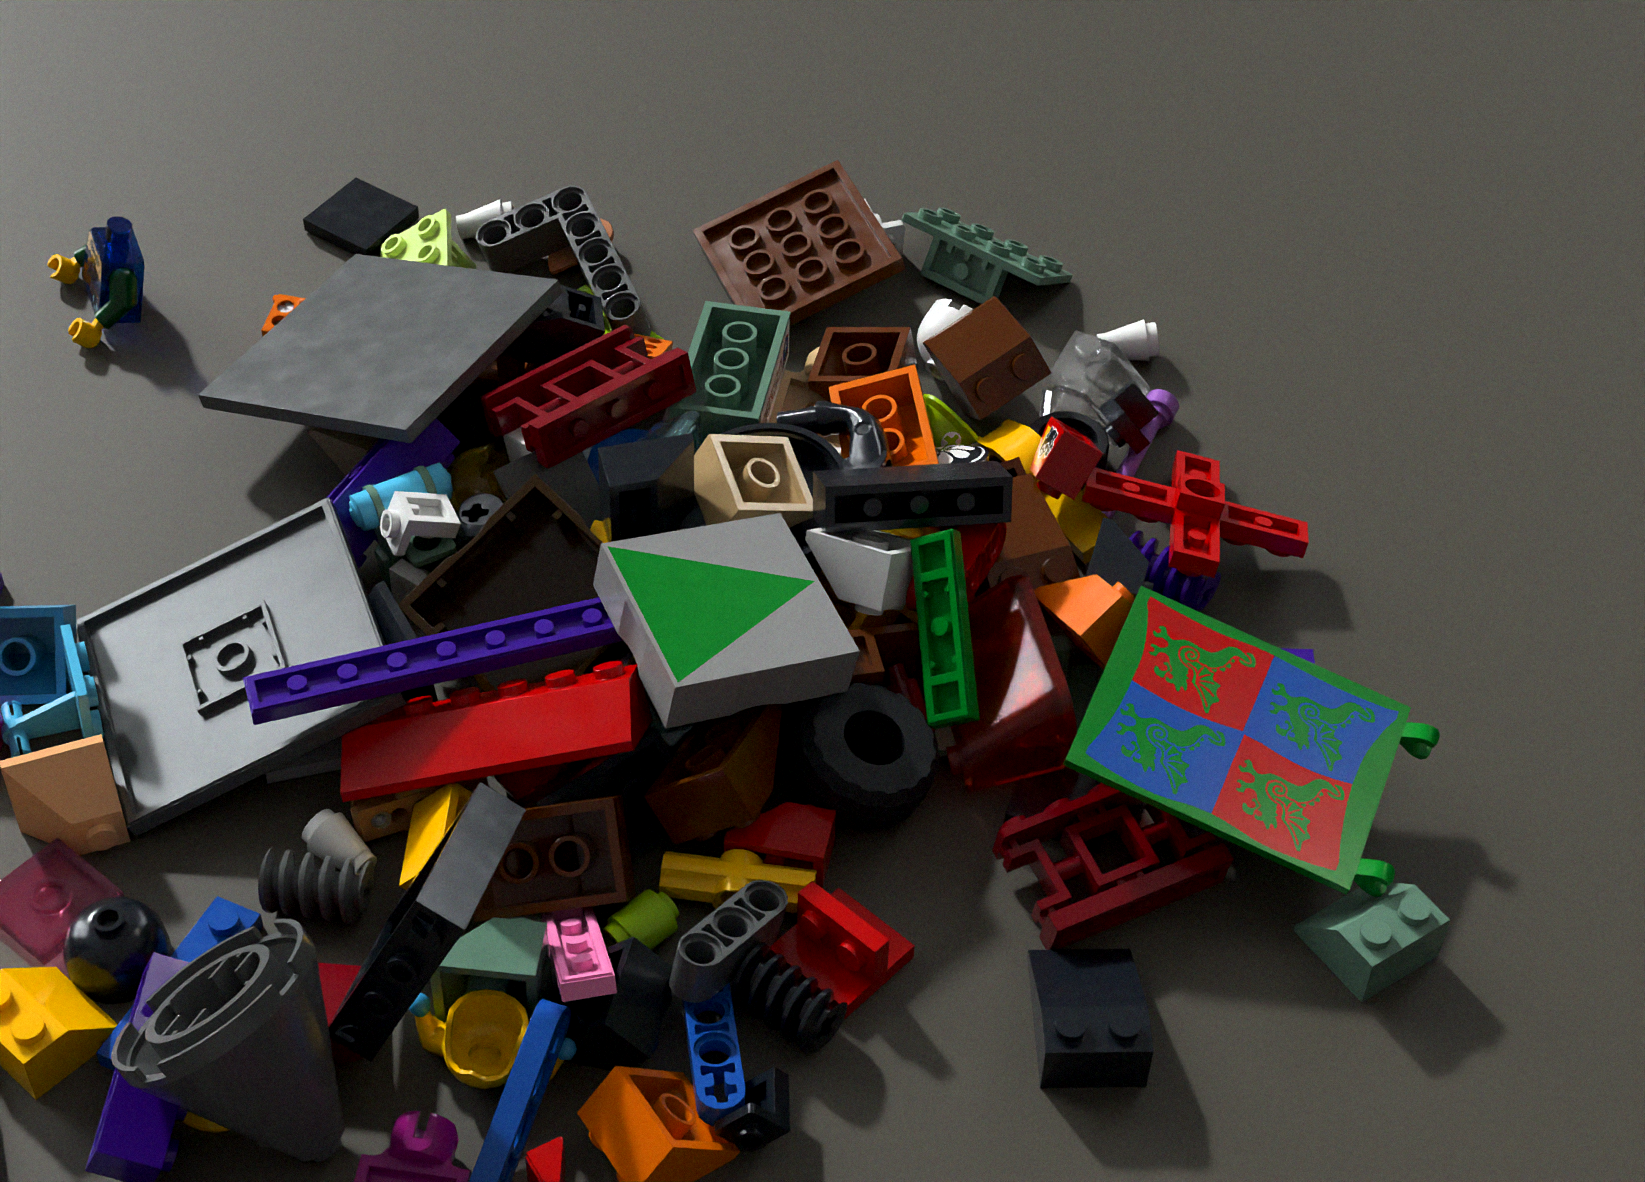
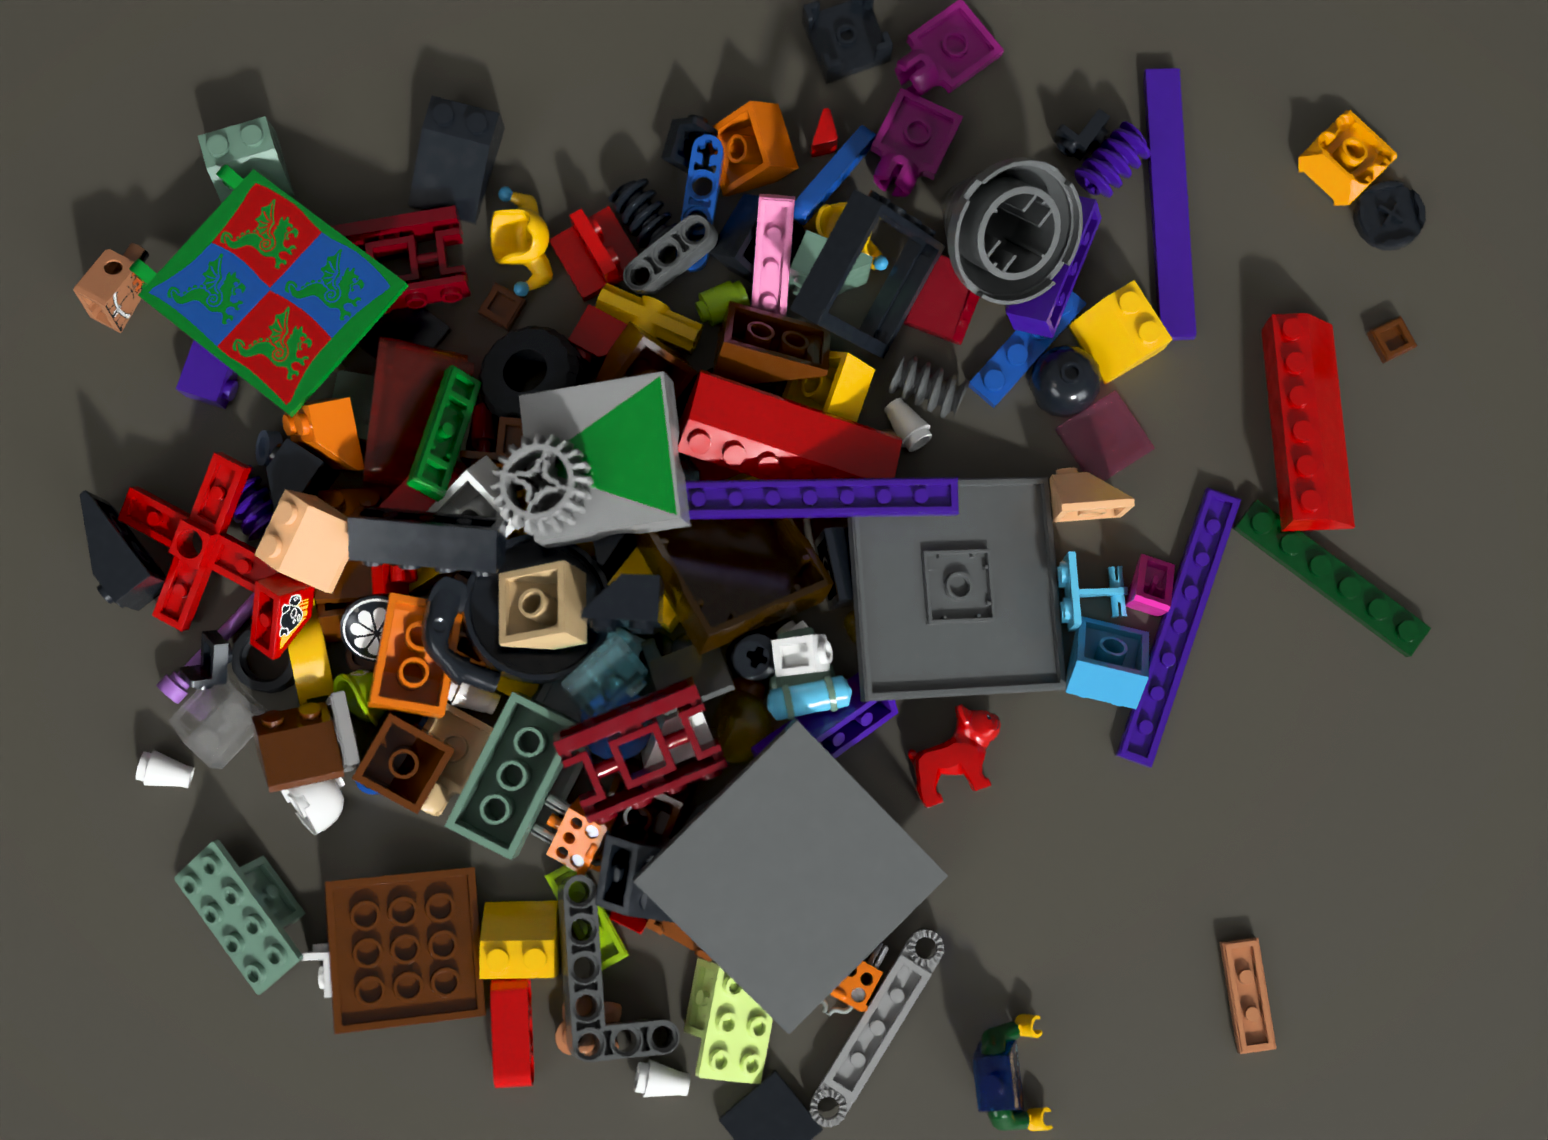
camera: 165 degrees left, 35 degrees up
(207, 522) = (957, 756): none -> red animal
(273, 274) = (876, 1028): none -> light grey plate
(659, 226) = (512, 1032): none -> red beam
(675, 282) = (519, 940): none -> yellow slope
(788, 546) = (538, 500): none -> light grey gear
(944, 382) = (343, 728): none -> light grey tile
(946, 860) = (502, 307): none -> reddish brown tile
(950, 932) = (521, 239): none -> yellow piece
(1064, 503) = (306, 540): none -> light nougat slope
(1280, 474) = (117, 557): none -> black slope
(1460, 750) = (110, 288): none -> nougat torso

